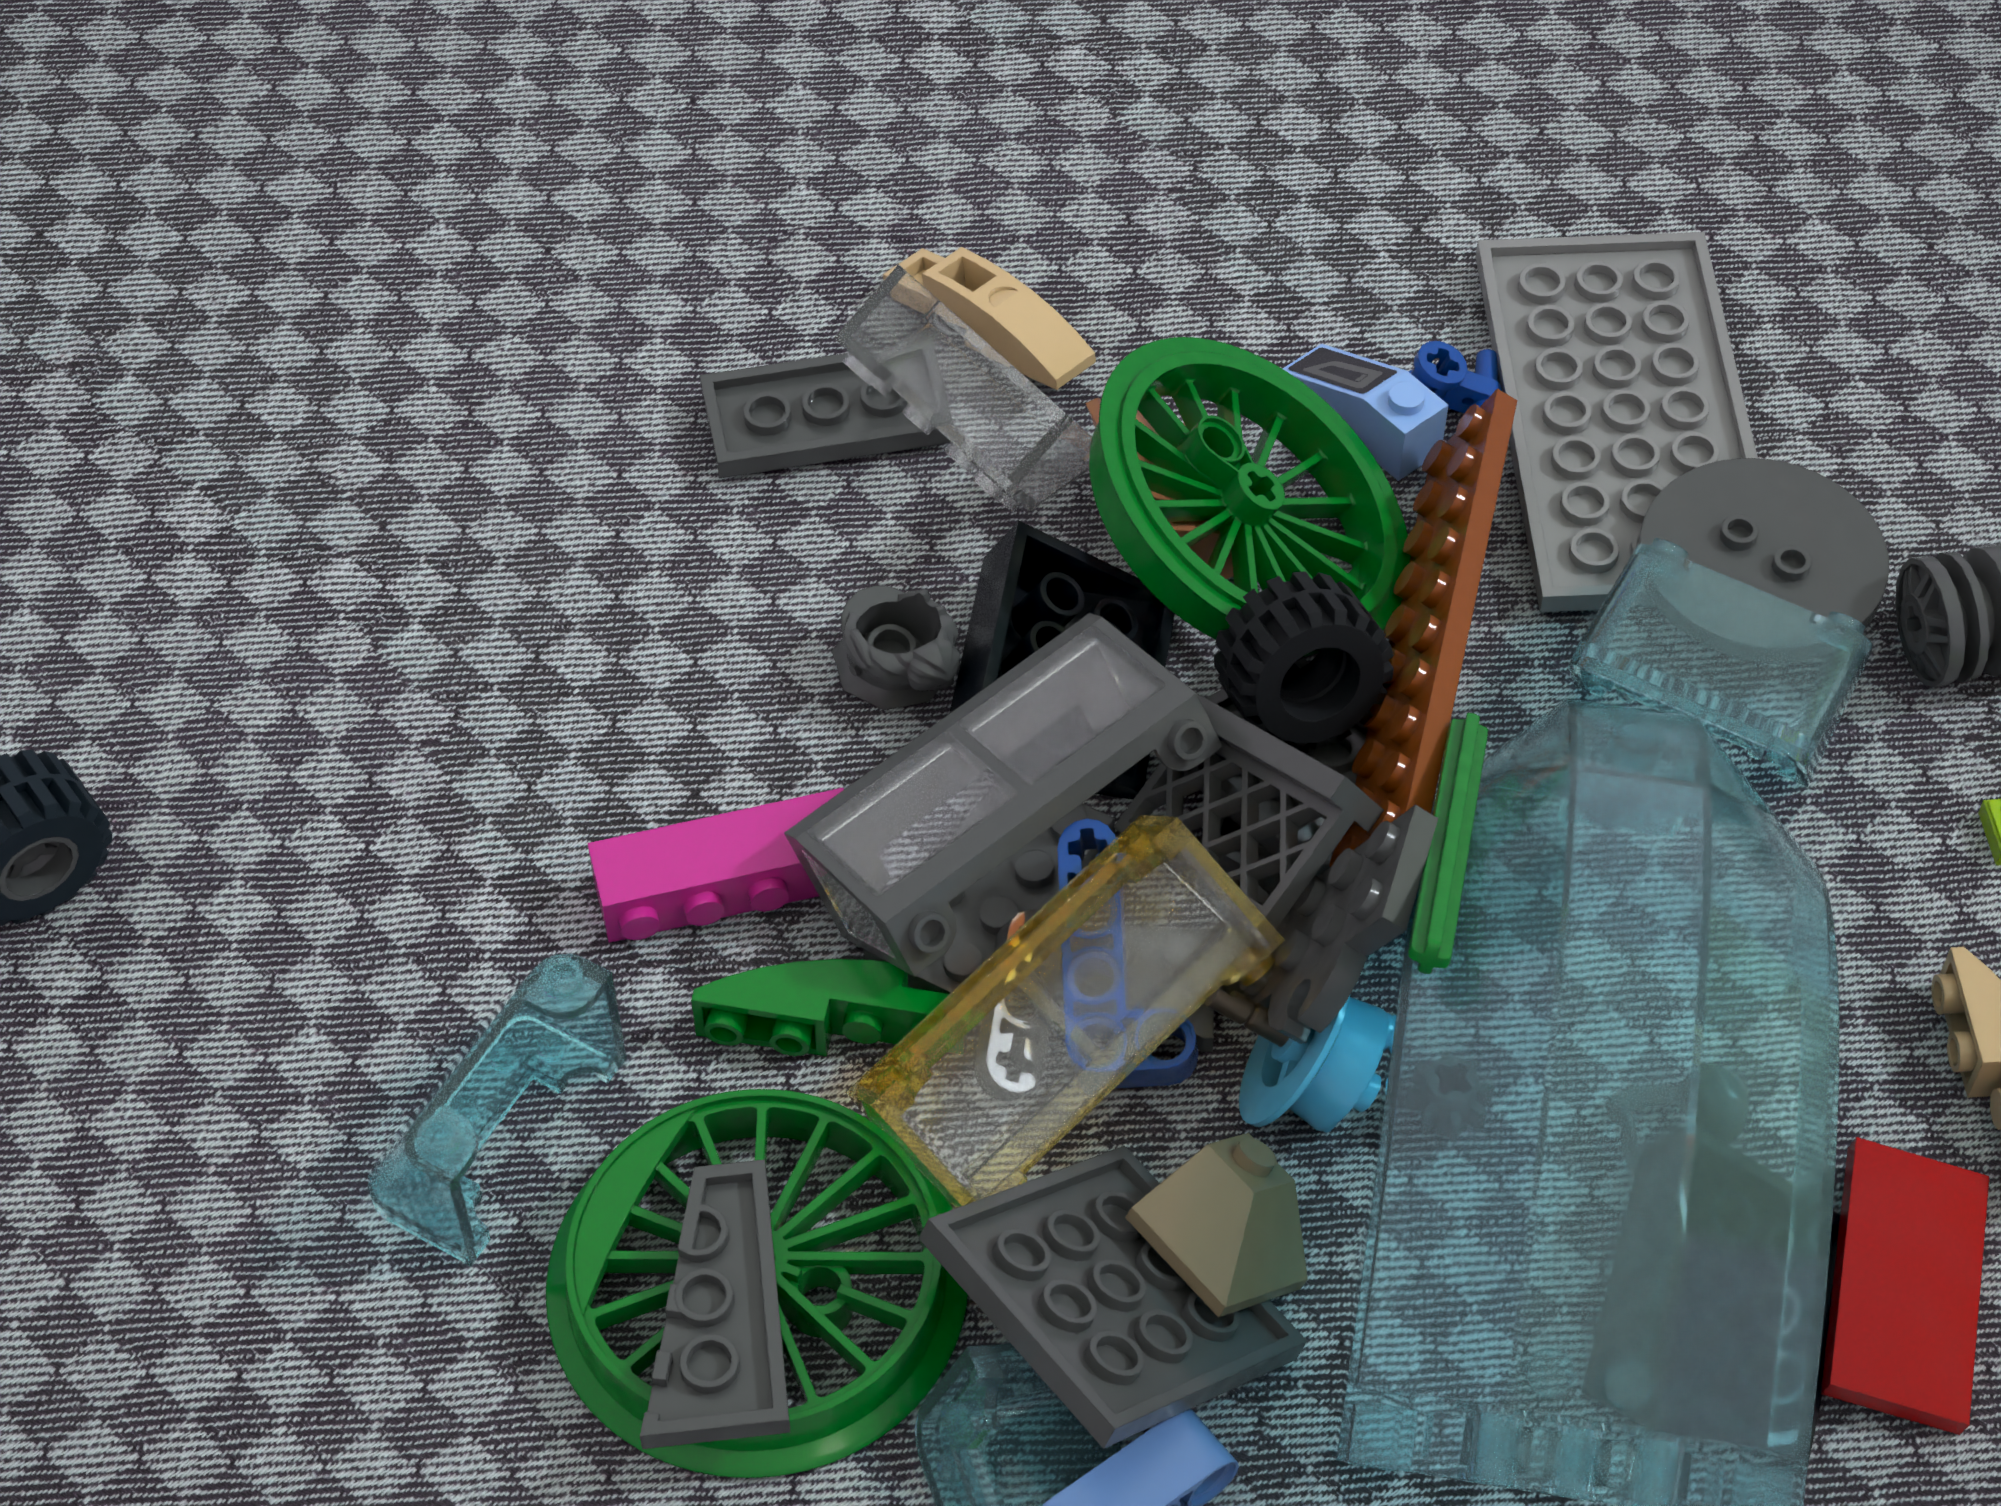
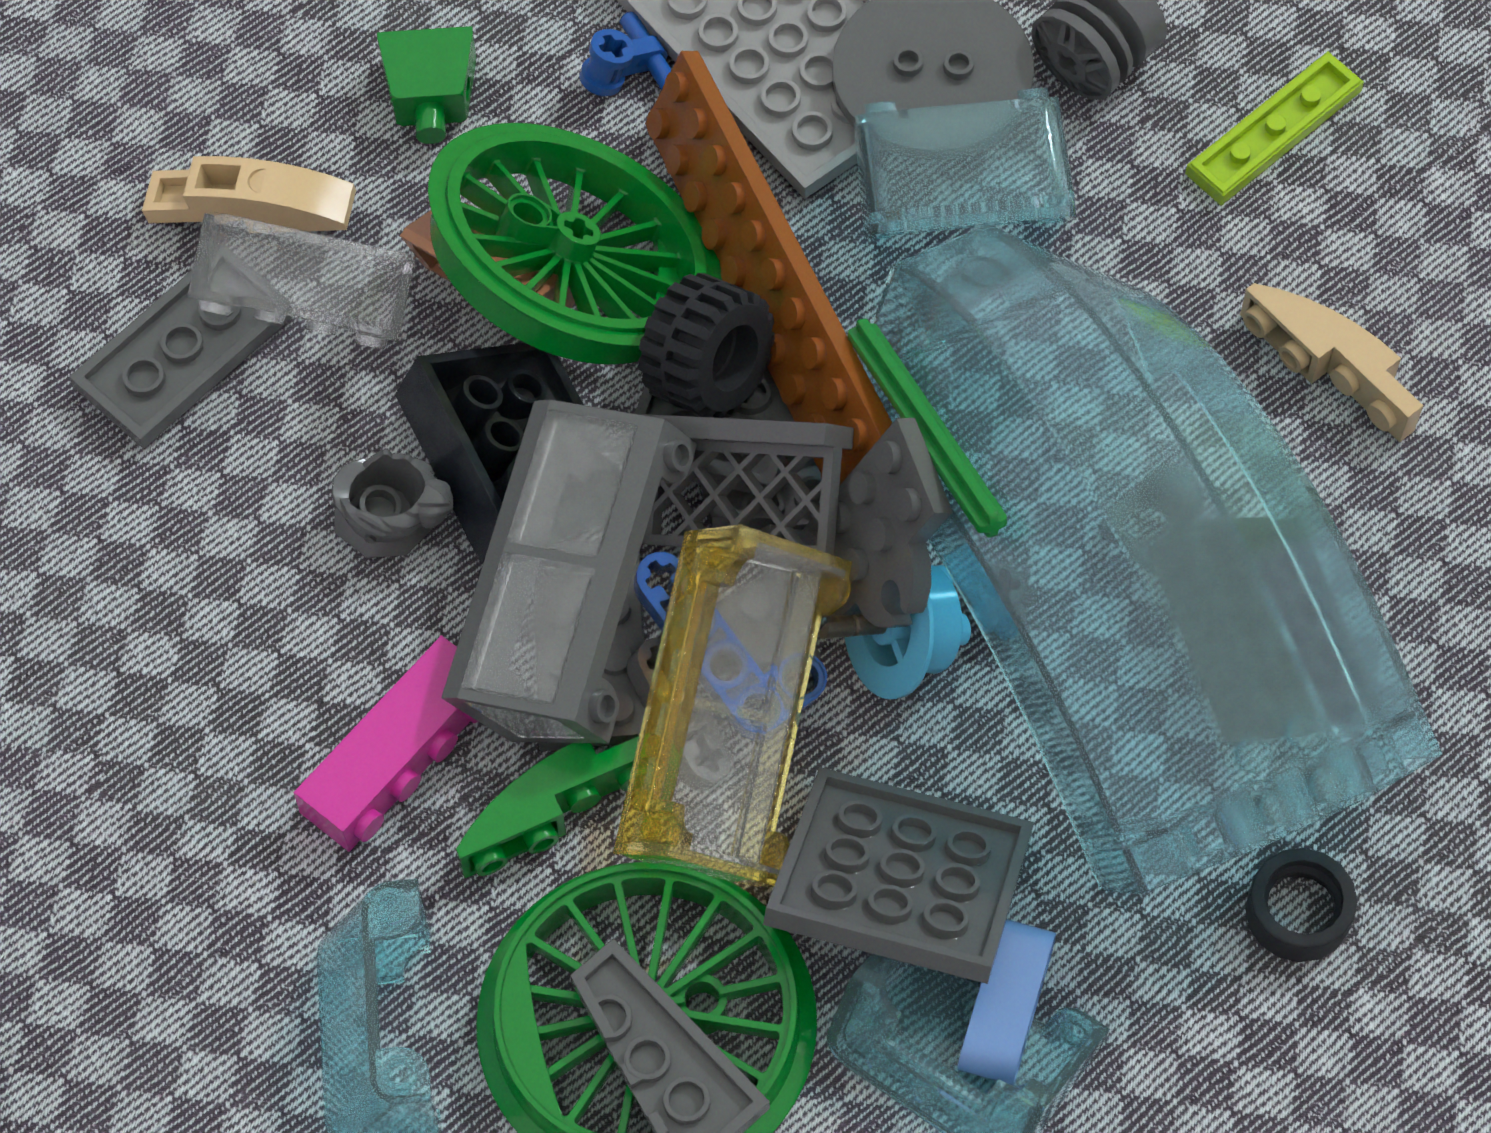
camera: 35 degrees left, 10 degrees up
(1228, 1225) = (935, 779): dark tan slope -> none
(1250, 299) = (429, 77): none -> green torso
(1380, 402) = (583, 101): light blue slope -> none
(1906, 1286) = (1380, 534): red tile -> none

